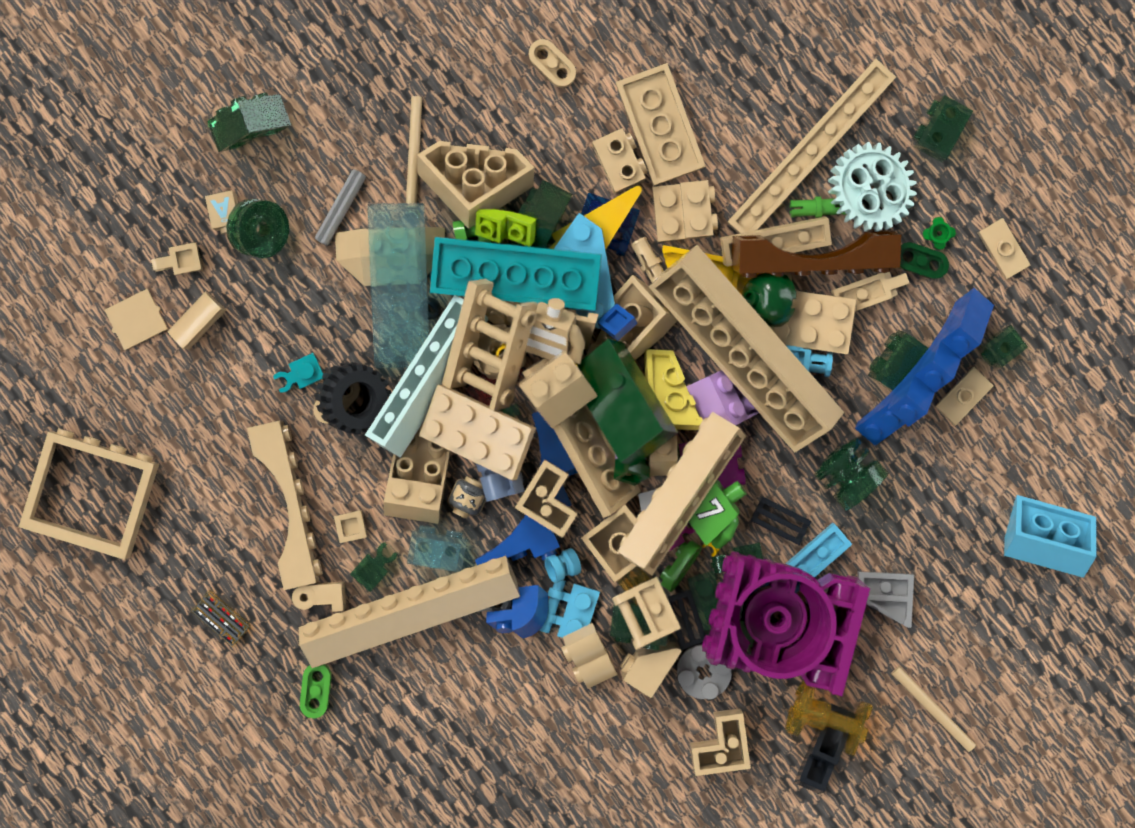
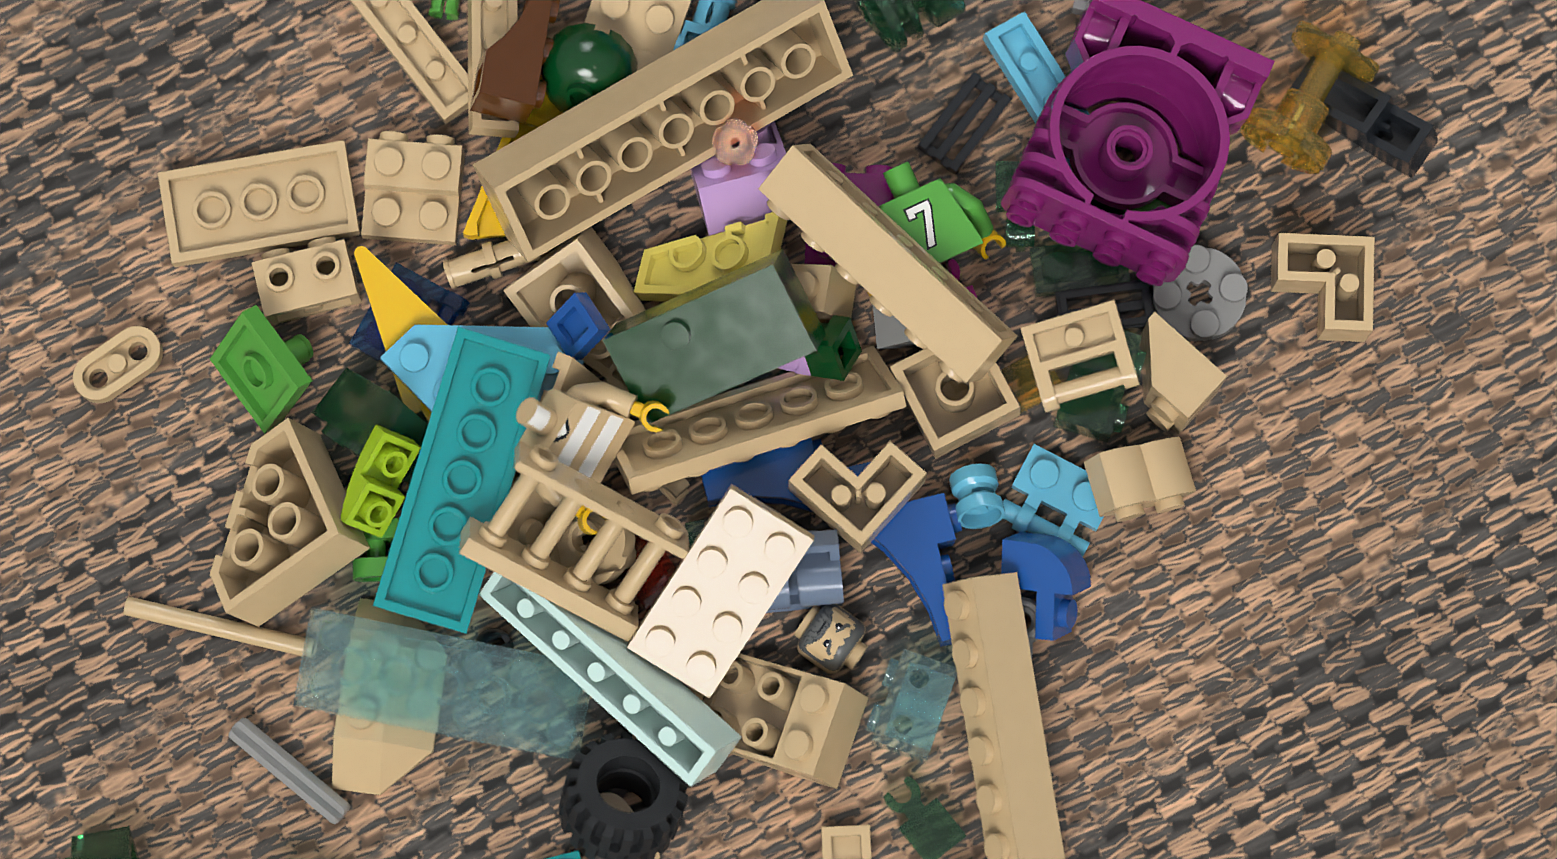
camera: 80 degrees left, 10 degrees down
(557, 389) = (670, 434): tan slope -> none
(563, 147) = (263, 367): none -> bright green tile
(686, 557) = (996, 286): bright green plate -> none
(734, 398) = (747, 139): none -> clear orange plate

